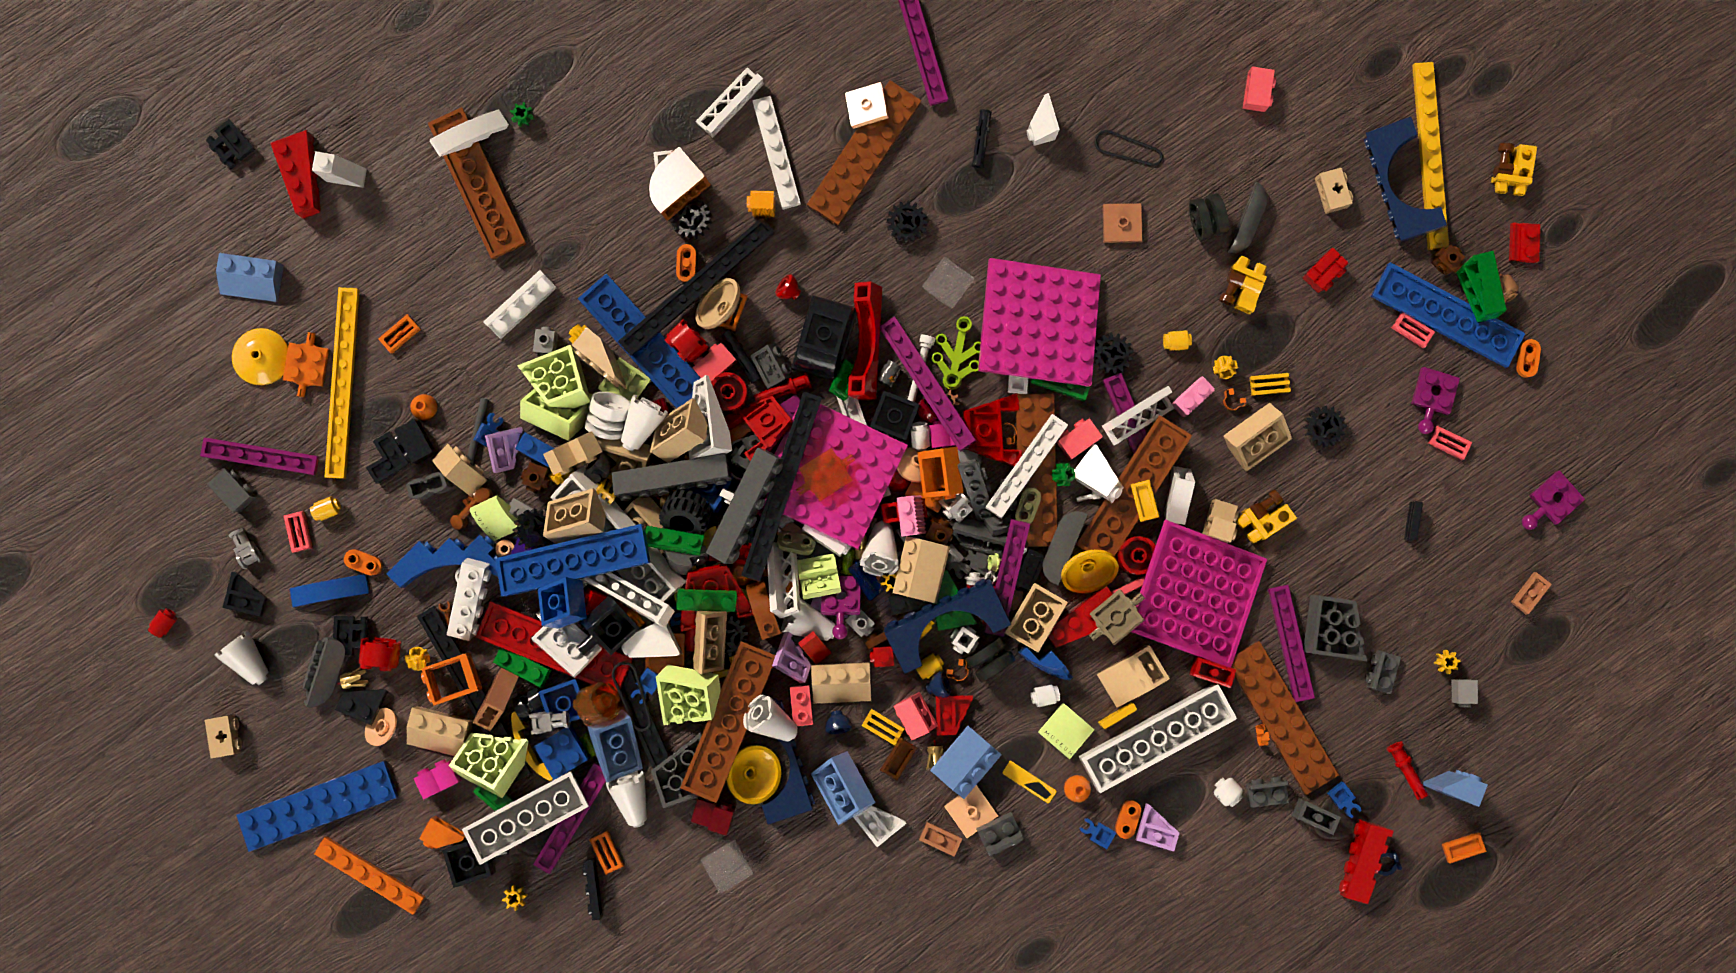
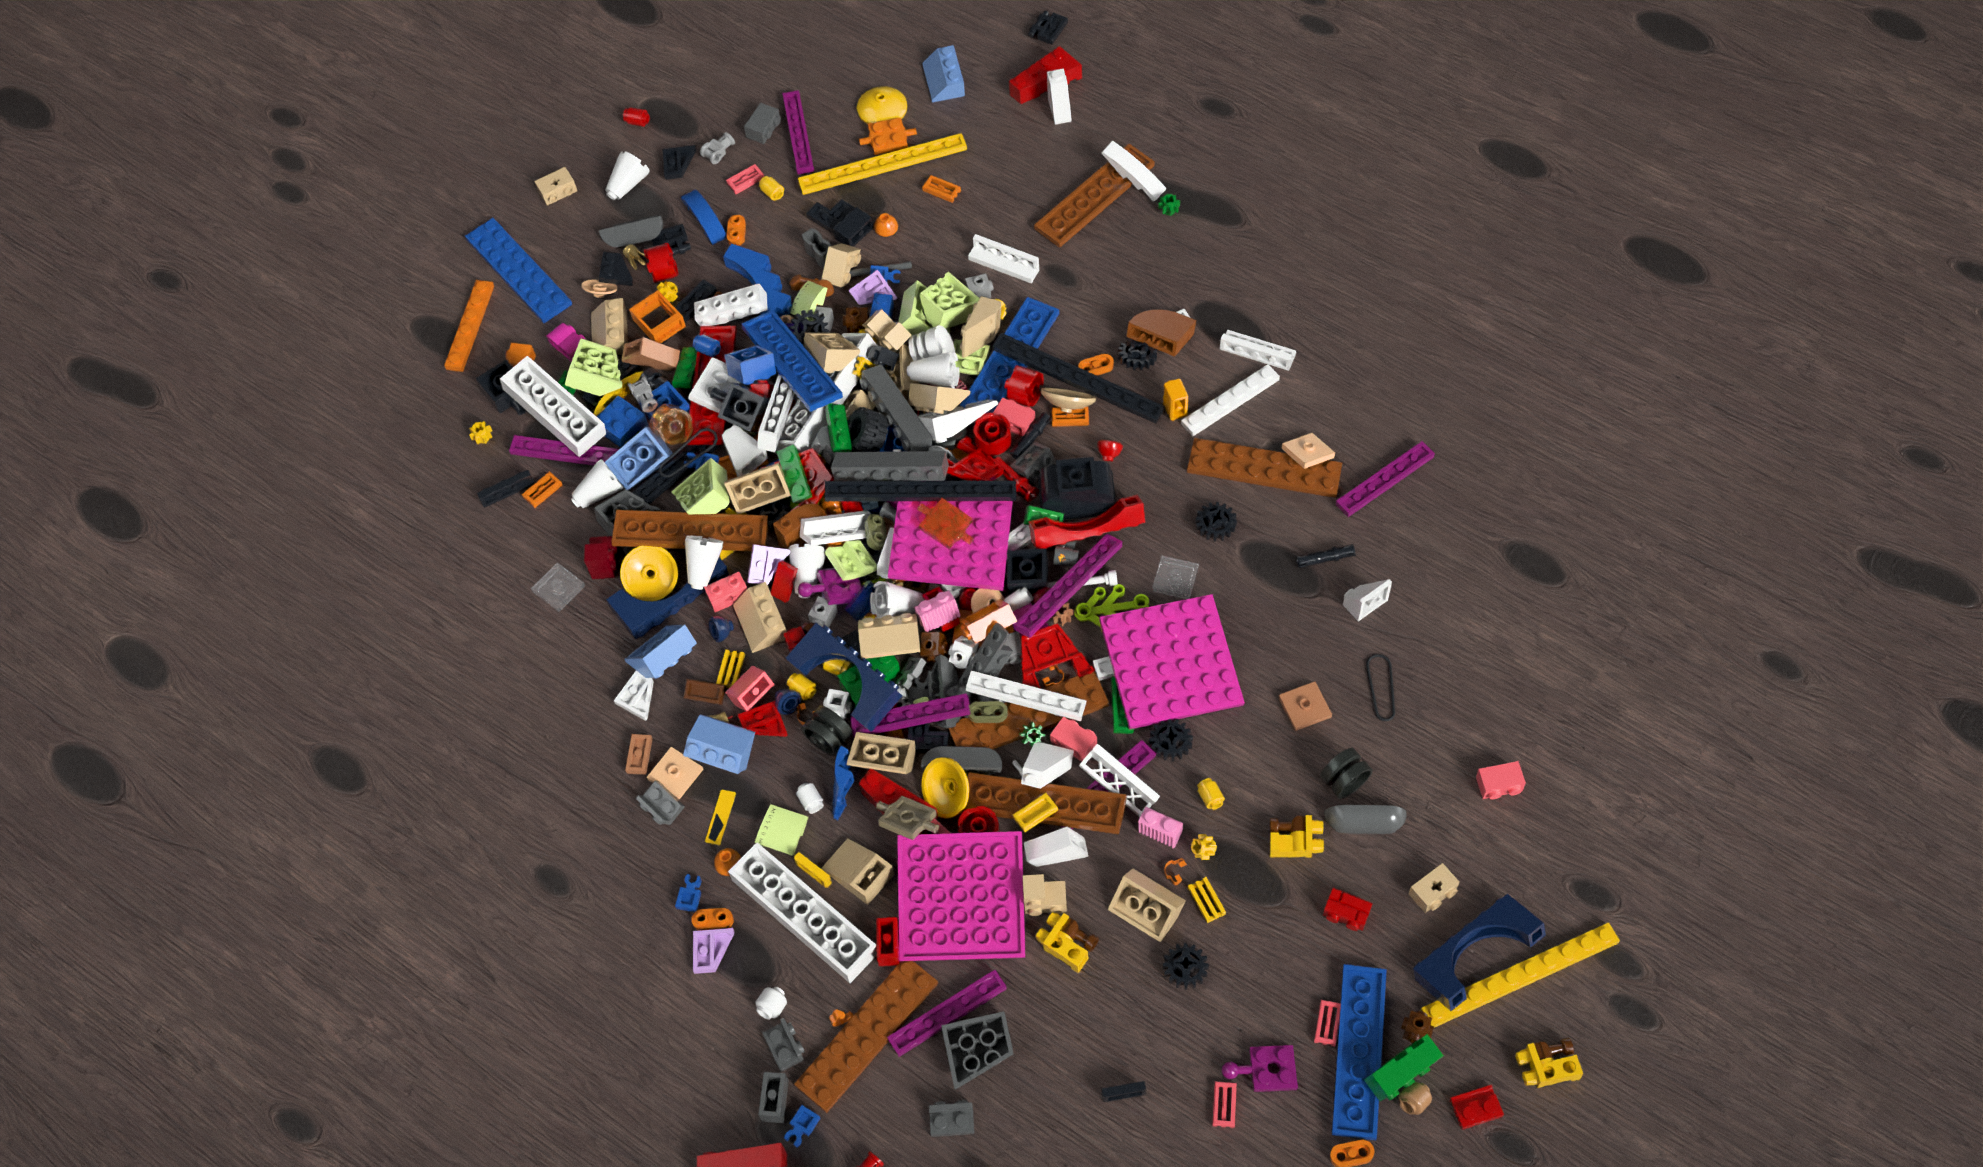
camera: 80 degrees right, 25 degrees down
(509, 638) = (706, 345): none -> blue brick

